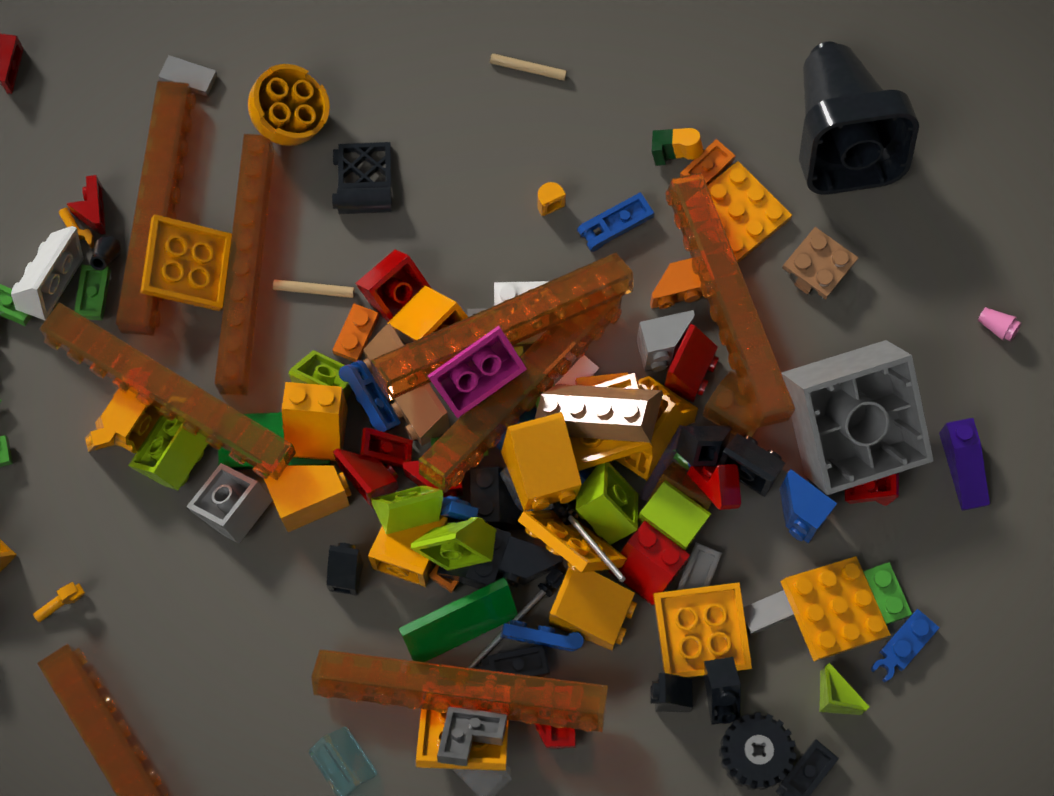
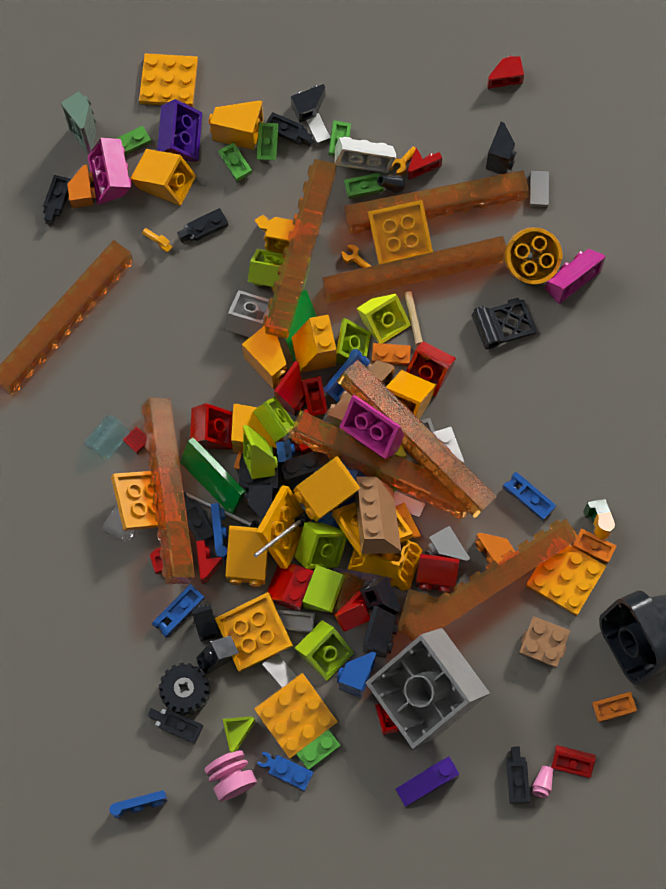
camera: 75 degrees right, 0 degrees up
(63, 529) = (203, 226): none -> black hinge
(117, 97) = (501, 152): none -> black slope
(195, 337) = (354, 257): none -> light orange bar
(299, 324) = (384, 317): none -> neon yellow slope
(330, 66) = (575, 274): none -> dark pink slope
(344, 569) = (226, 395): black slope -> none
(361, 719) = (136, 440): none -> tile
(381, 604) = (211, 426): none -> red slope
(465, 727) = (142, 496): flat silver plate -> none
(528, 67) = (628, 404): tan bar -> none
(550, 198) = (530, 447): light orange brick -> none
(587, 672) = (206, 566): none -> red slope
(638, 728) = (178, 610): none -> blue plate
(752, 544) = (324, 650): none -> lime slope
(903, 718) = (229, 772): none -> bright pink wheel
(923, 210) = (614, 707): none -> orange plate
(978, 281) = (573, 761): none -> red slope
(986, 352) = (517, 778): none -> black hinge

